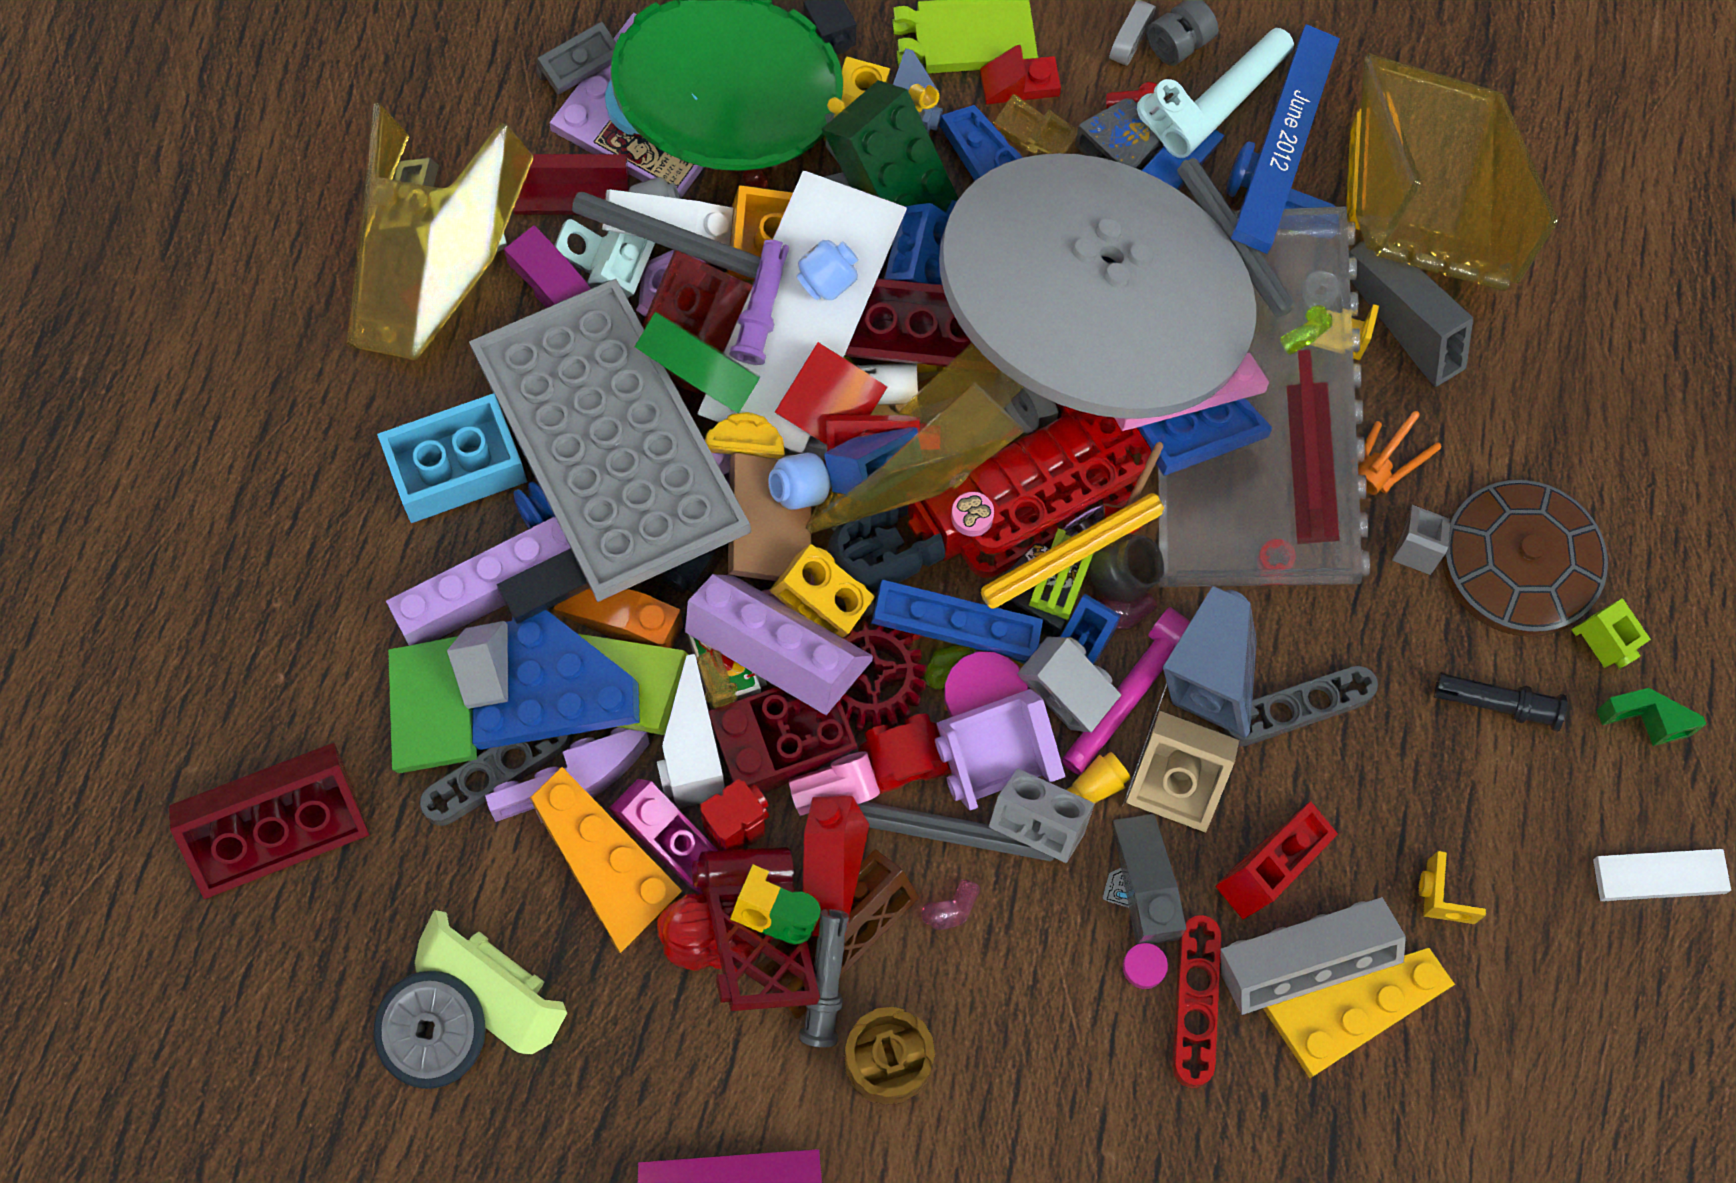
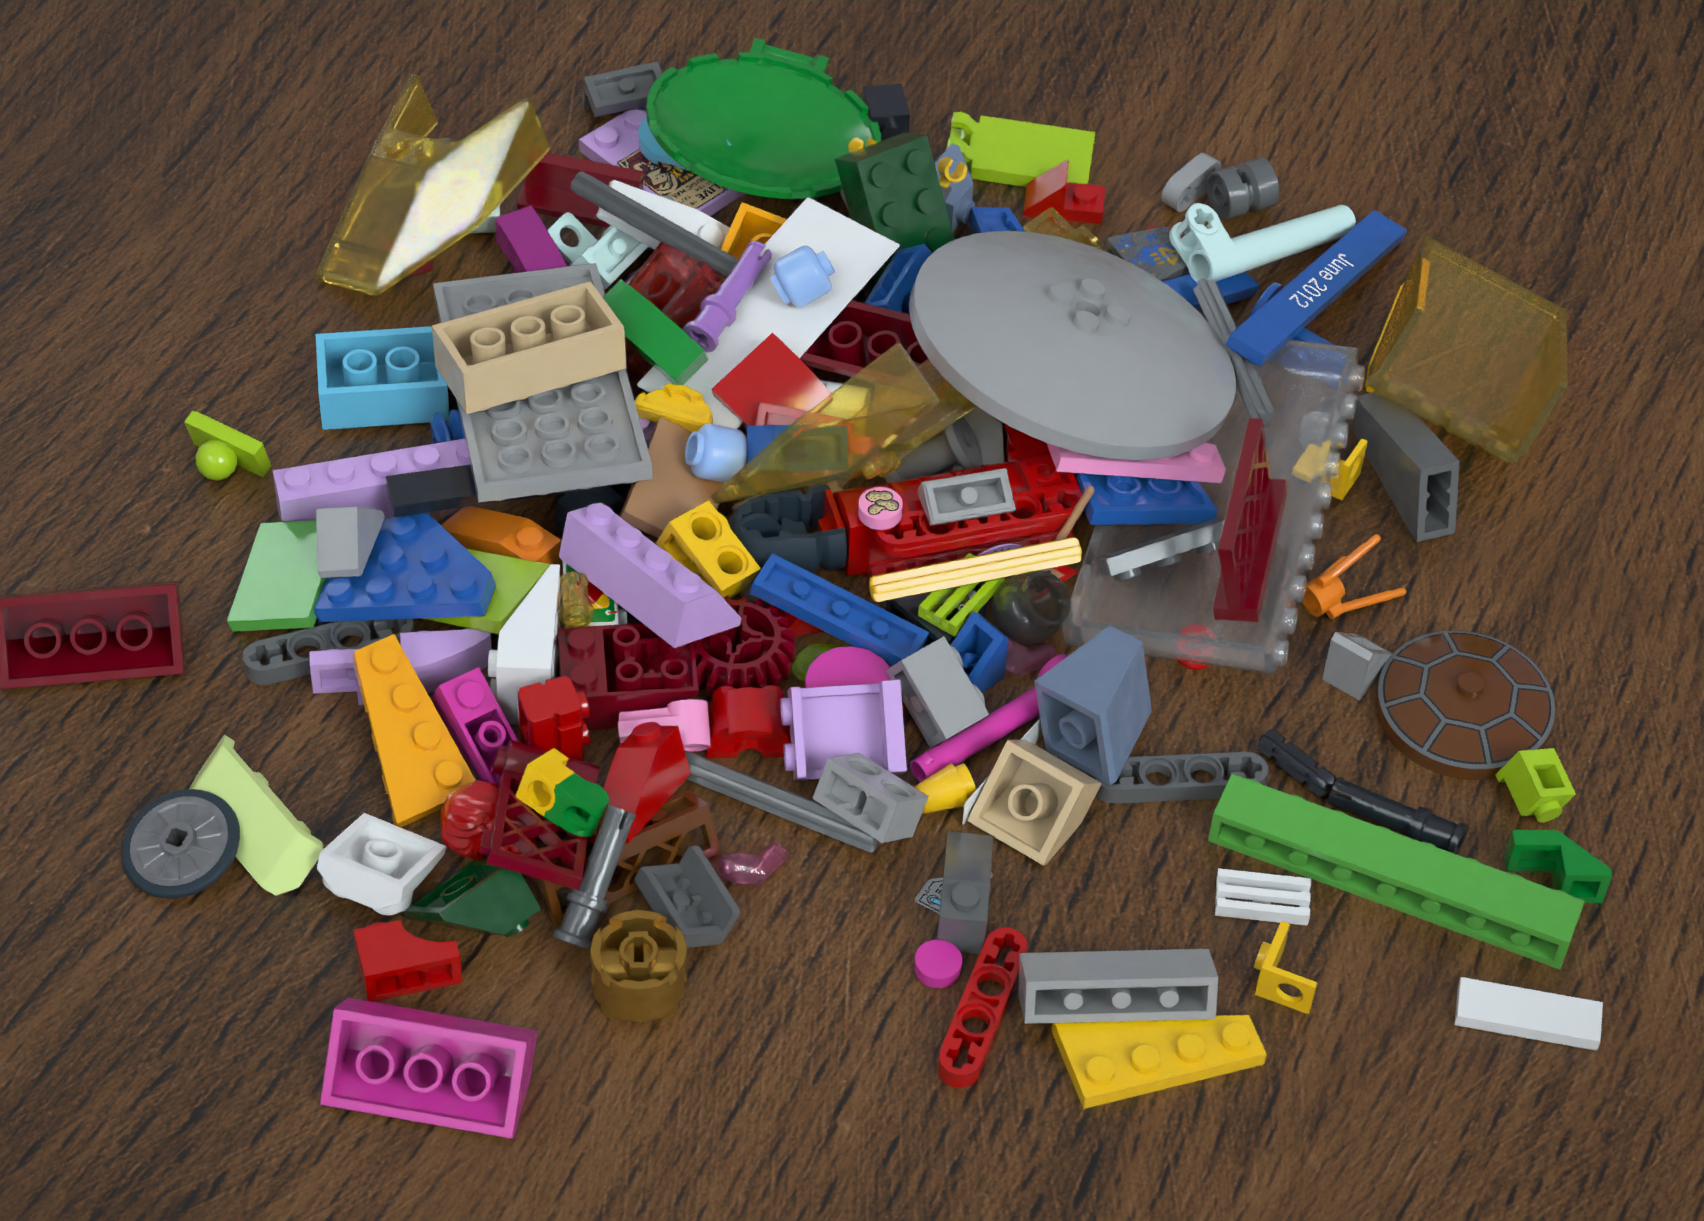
camera: 15 degrees right, 20 degrees down
(326, 576) = (224, 448): none -> lime tile
(594, 418) = (529, 347): none -> tan brick
(619, 1003) = (378, 864): none -> white slope
(667, 1107) = (402, 964): none -> red arch
(708, 1032) = (478, 900): none -> dark green slope
(909, 965) = (690, 898): none -> dark grey bracket
(1047, 480) = (966, 497): none -> light grey slope
(1234, 479) = (1162, 549): none -> plate
(1276, 861) = (1105, 898): red slope -> none
(1318, 324) = (1290, 435): clear neon green arm -> none
(1397, 662) = (1296, 763): none -> black axle
(1439, 809) = (1263, 890): none -> white tile
(1515, 759) = (1396, 871): none -> bright green brick

